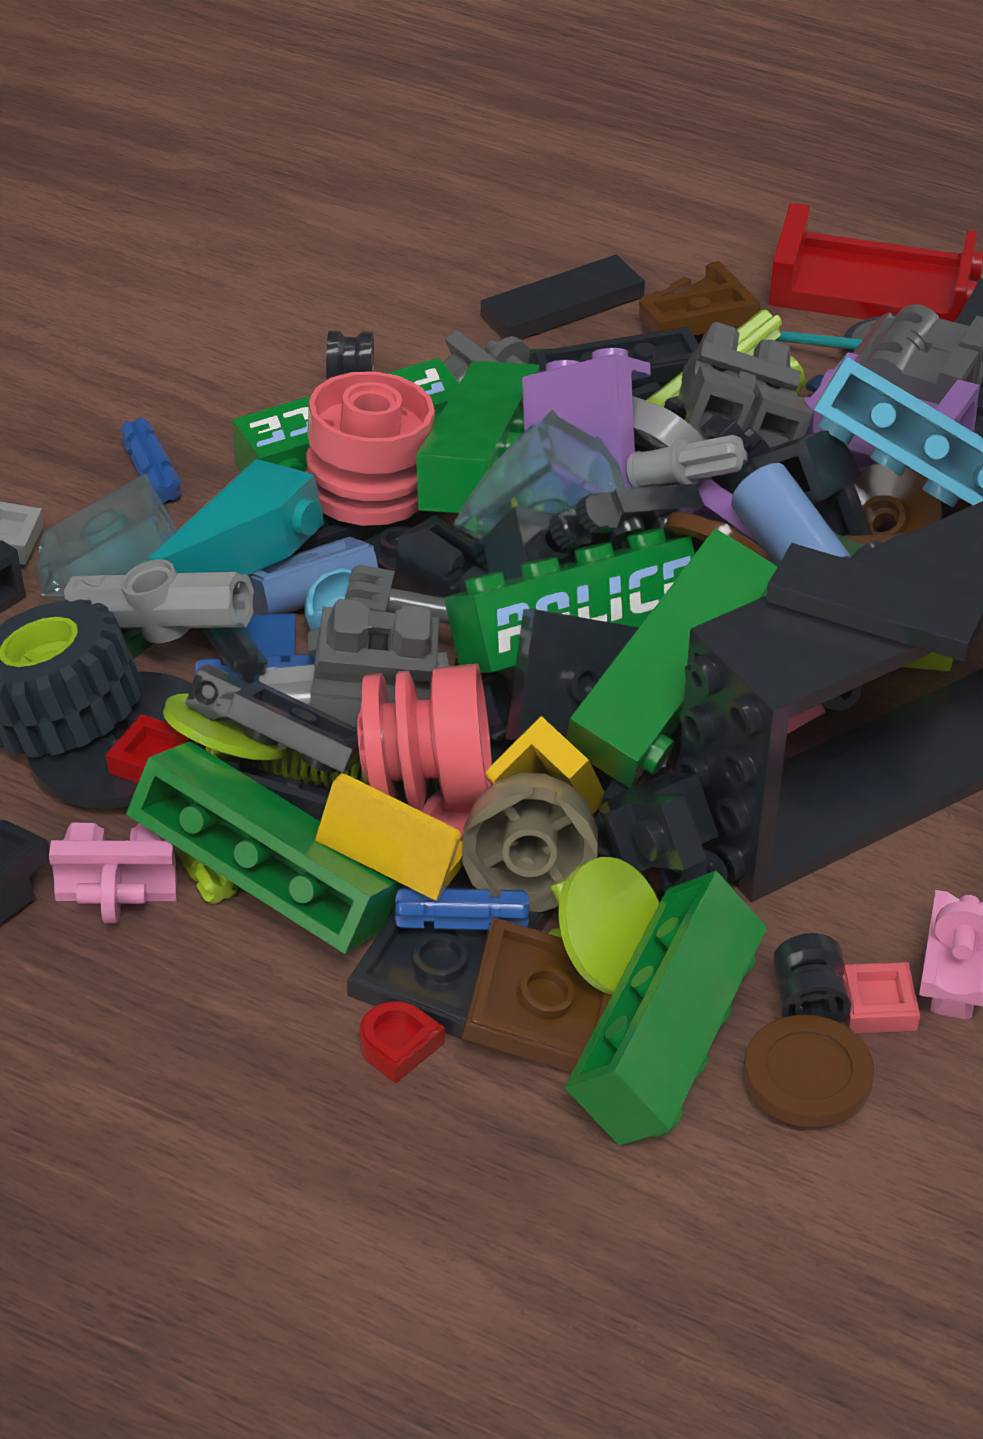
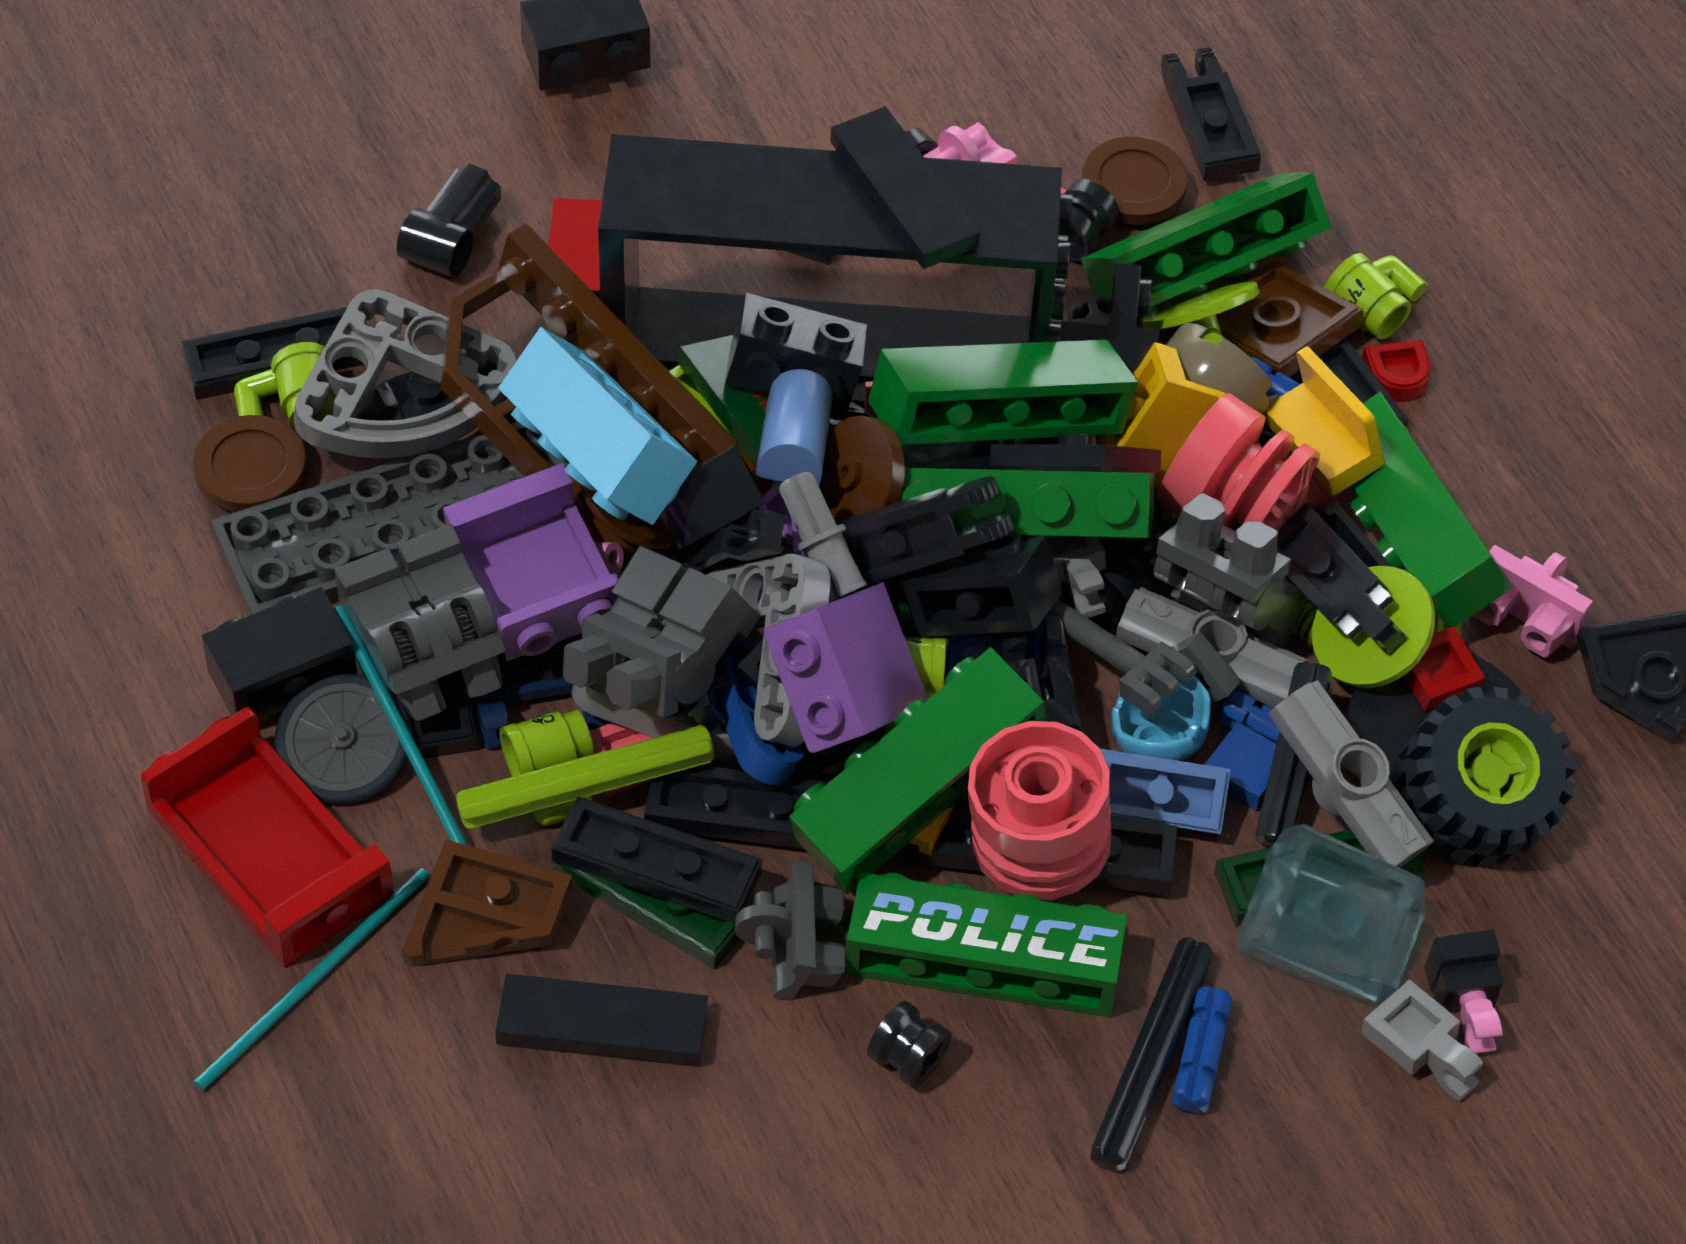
camera: 145 degrees left, 10 degrees up
(183, 439) = (1151, 1055): none -> black axle
(248, 523) = (1211, 817): teal slope -> none
(482, 1072) = (1378, 291): none -> lime piece
(543, 472) = (968, 599): clear light blue slope -> none
(760, 234) = (311, 980): none -> teal piece
(811, 1189) = (1211, 116): none -> black hinge

